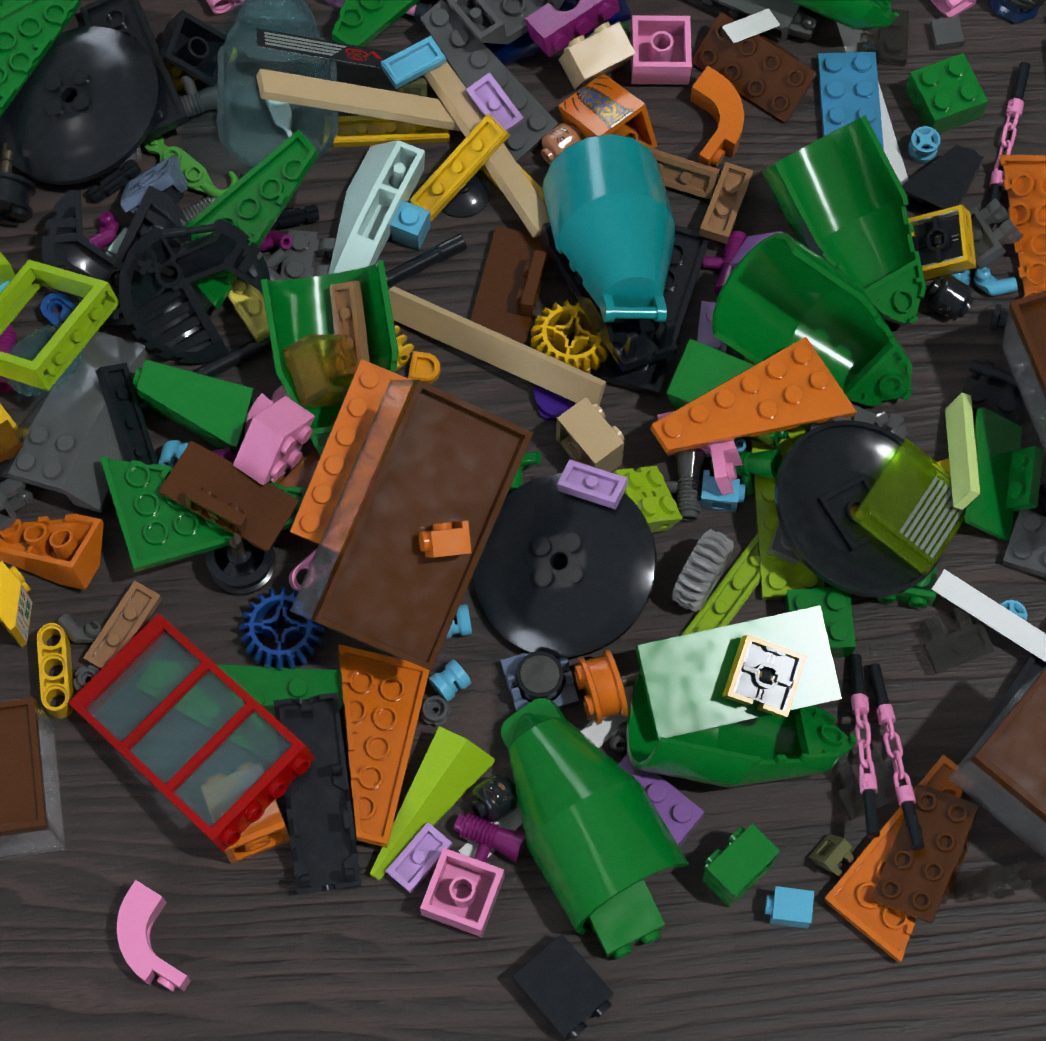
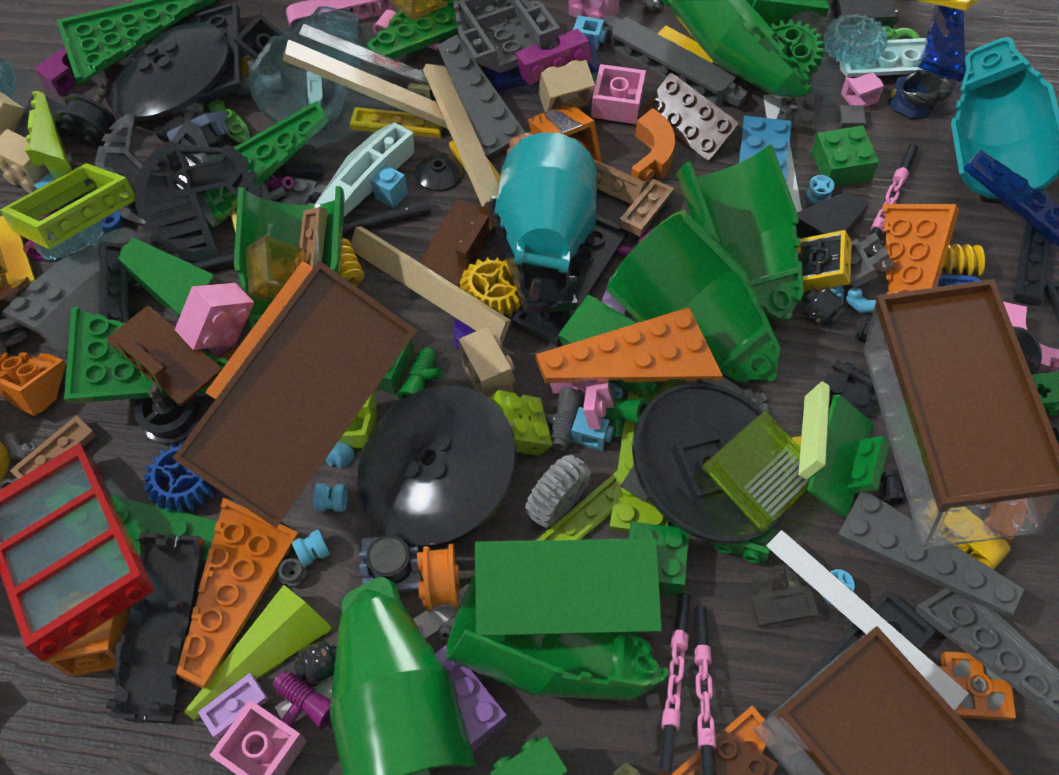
camera: 15 degrees right, 10 degrees down
(413, 62) = (421, 71): medium azure tile -> none
(424, 367) = (372, 289): light orange tile -> none
(446, 540) = (311, 407): orange brick -> none
(460, 166) = (439, 148): yellow tile -> none
(494, 101) = (477, 110): lavender plate -> none
(592, 484) = (472, 395): lavender plate -> none
(751, 25) = (693, 84): white sticker -> none
(764, 676) = (594, 582): piece -> none

